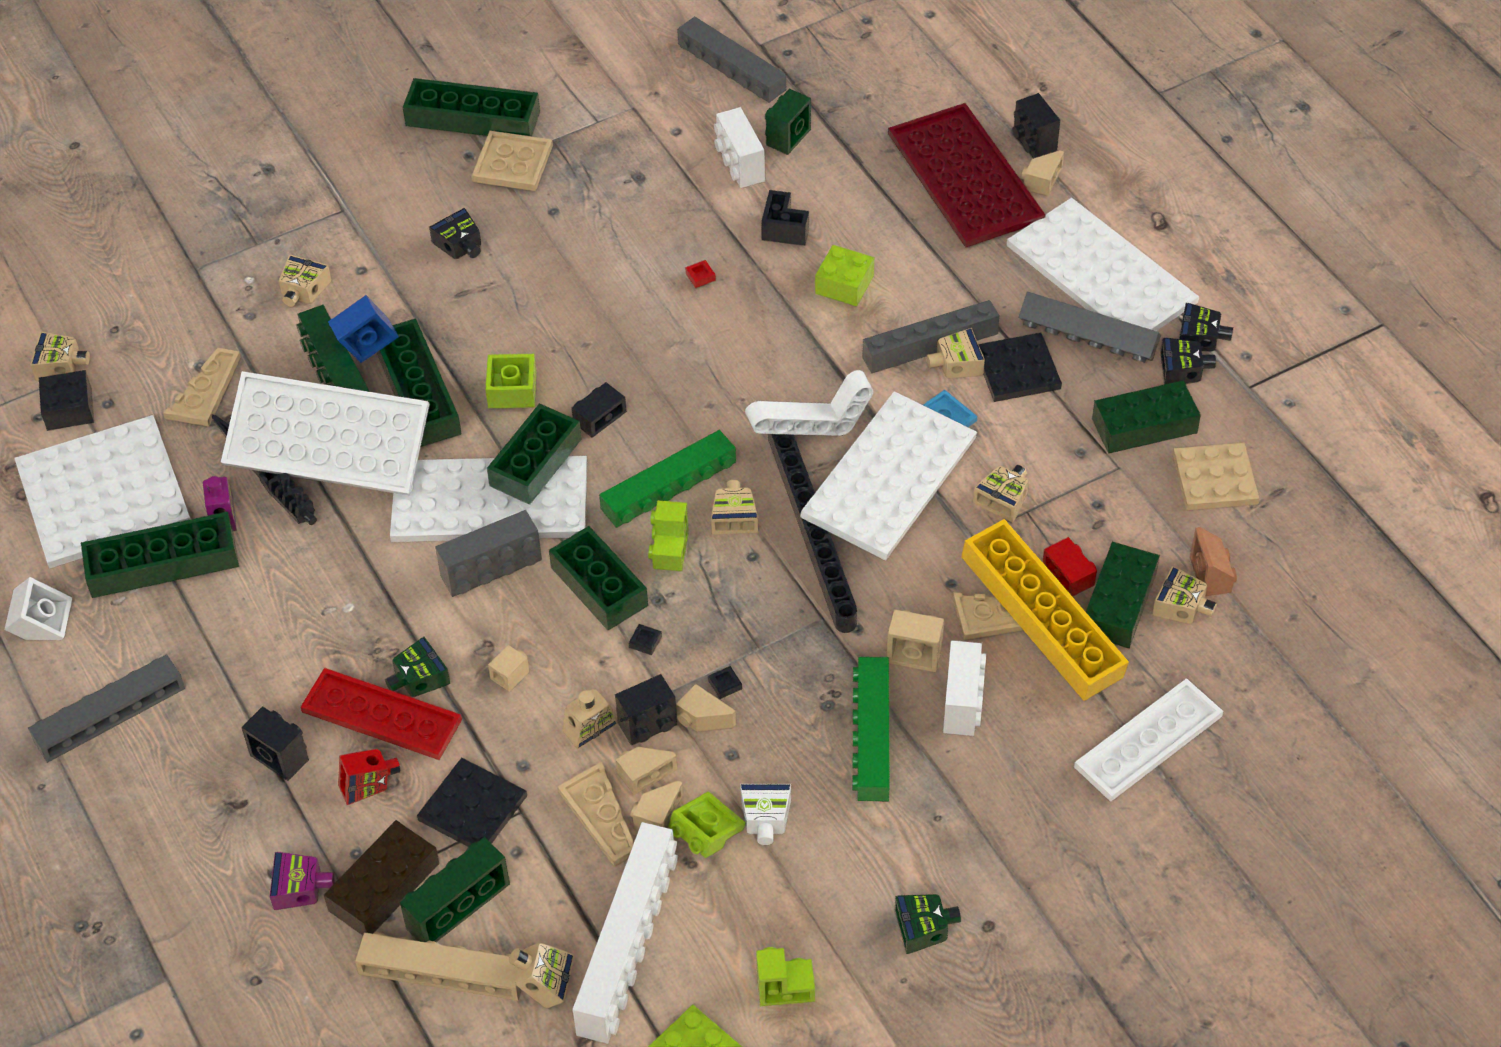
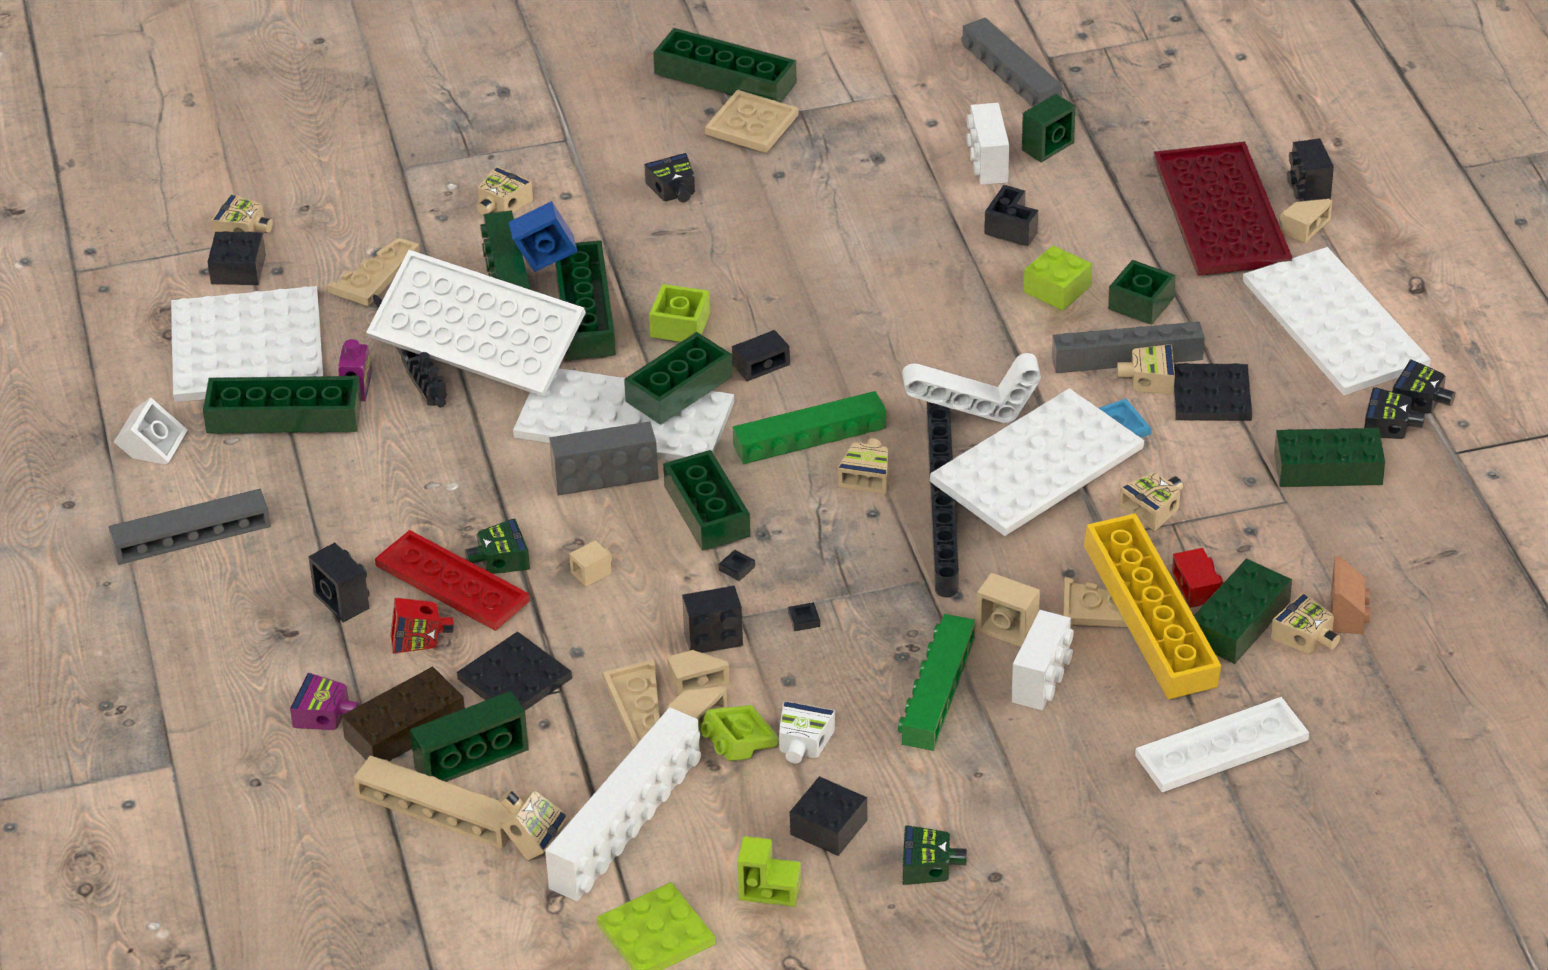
camera: 15 degrees right, 10 degrees down
(587, 718) = (653, 617): tan torso -> none
(669, 535) = (792, 475): lime brick -> none
(700, 273) = (908, 253): red plate -> none
(704, 711) = (772, 635): tan slope -> none
(818, 898) = (828, 816): none -> black brick
(925, 277) = (1141, 292): none -> dark green brick
(1089, 326) = (1300, 365): dark grey brick -> none
(1215, 476) = (1385, 526): tan plate -> none

